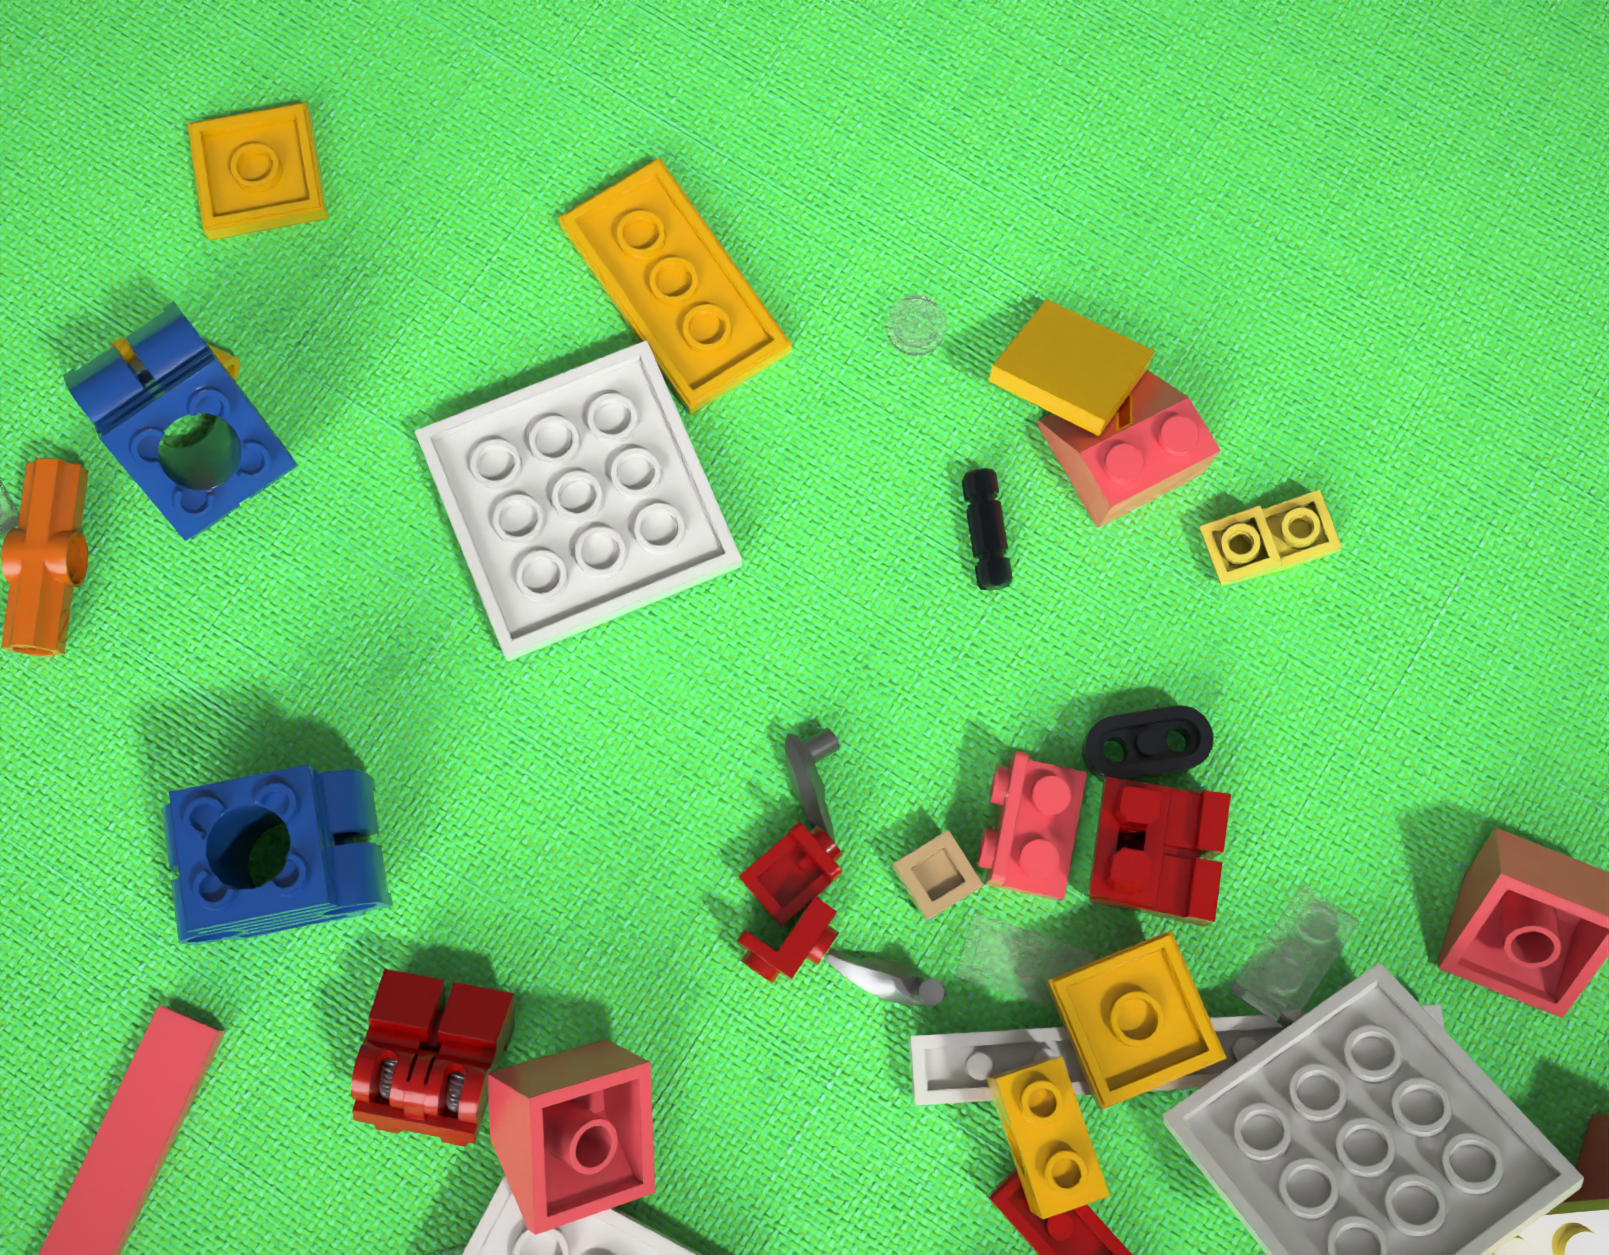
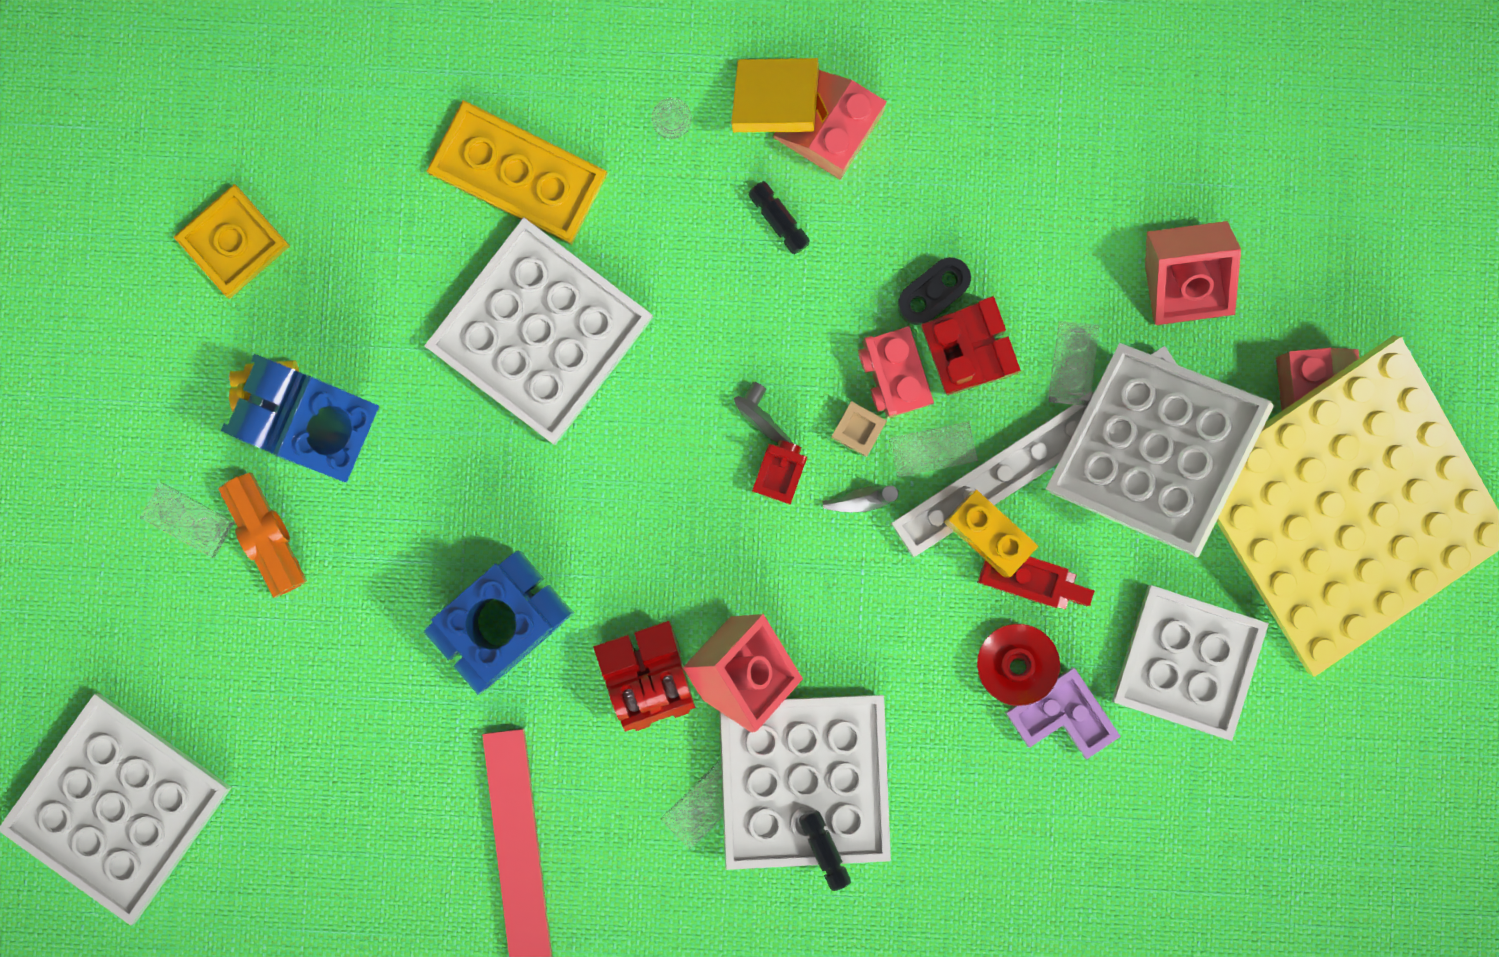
camera: 25 degrees left, 10 degrees up
(808, 940) = (808, 503): red bracket -> none
(1135, 1020) = (1005, 446): yellow tile -> none
(1270, 538) = (941, 132): light yellow slope -> none

